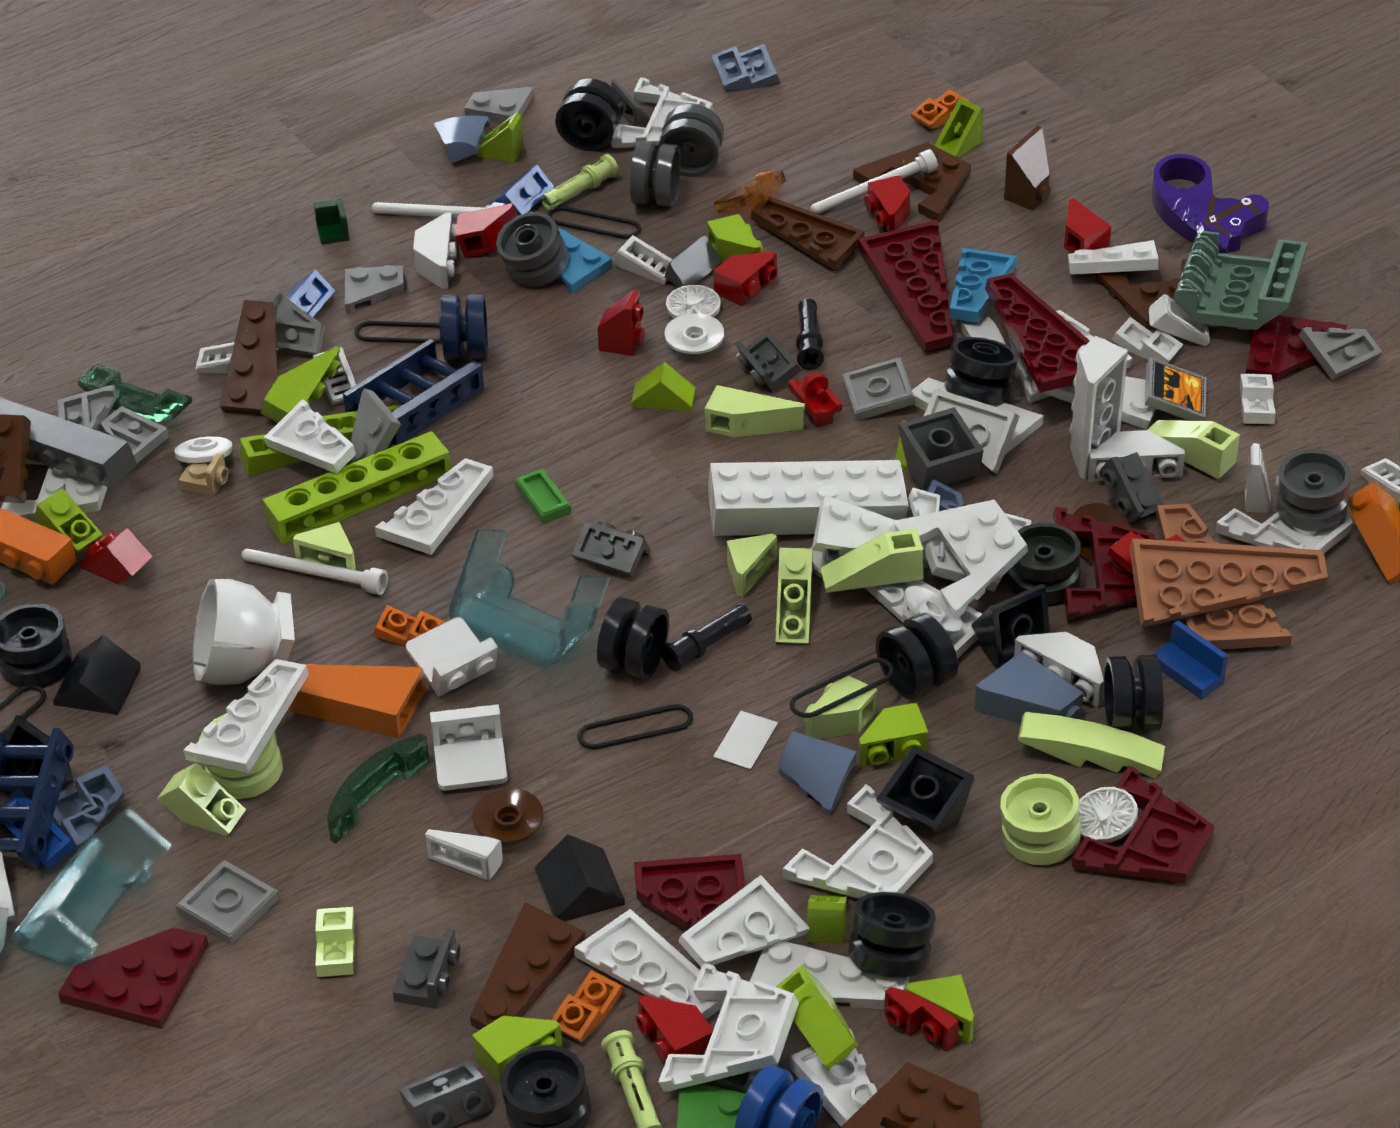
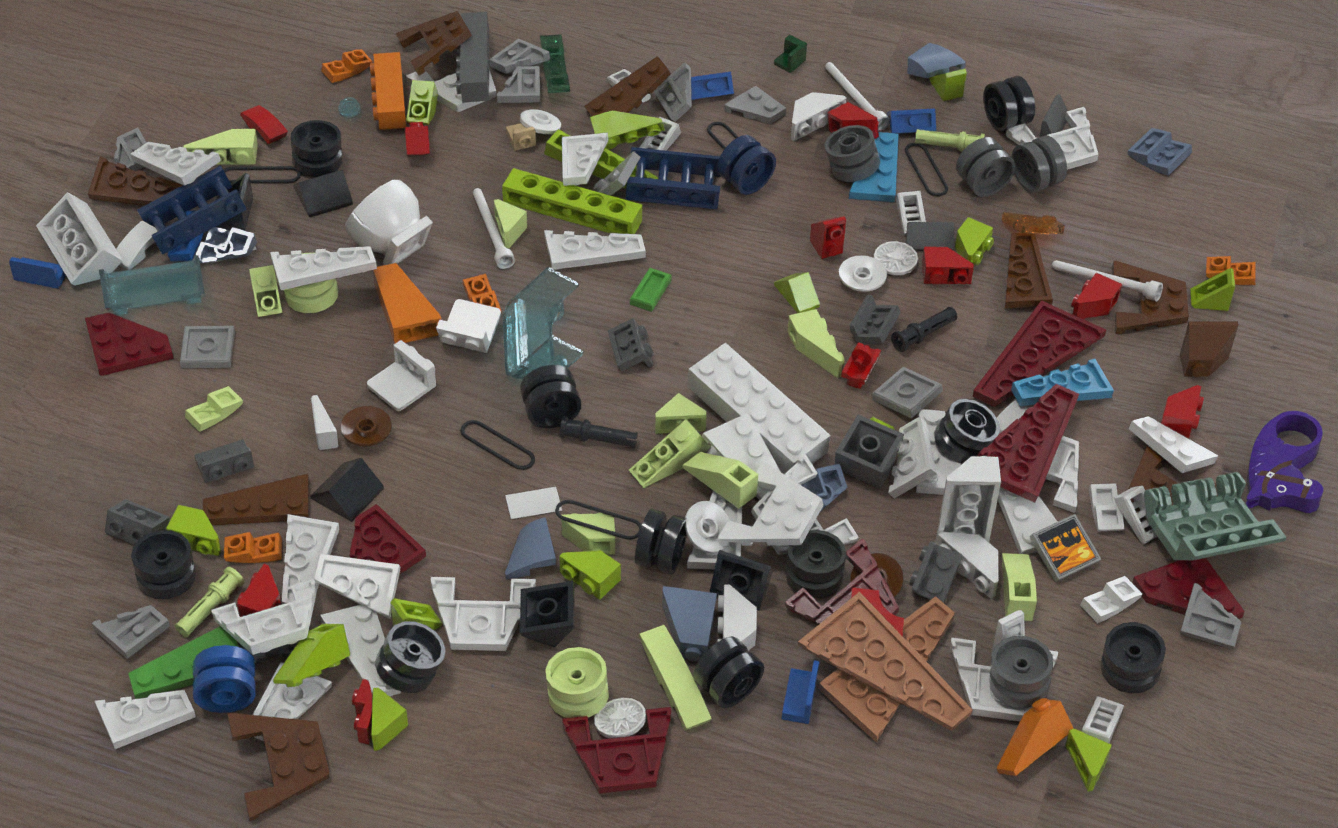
camera: 50 degrees right, 5 degrees up
(399, 759) = (339, 348): clear green slope -> none
(499, 104) = (988, 62): light grey wing -> none
(1346, 417) = (1133, 657): none -> black wheel

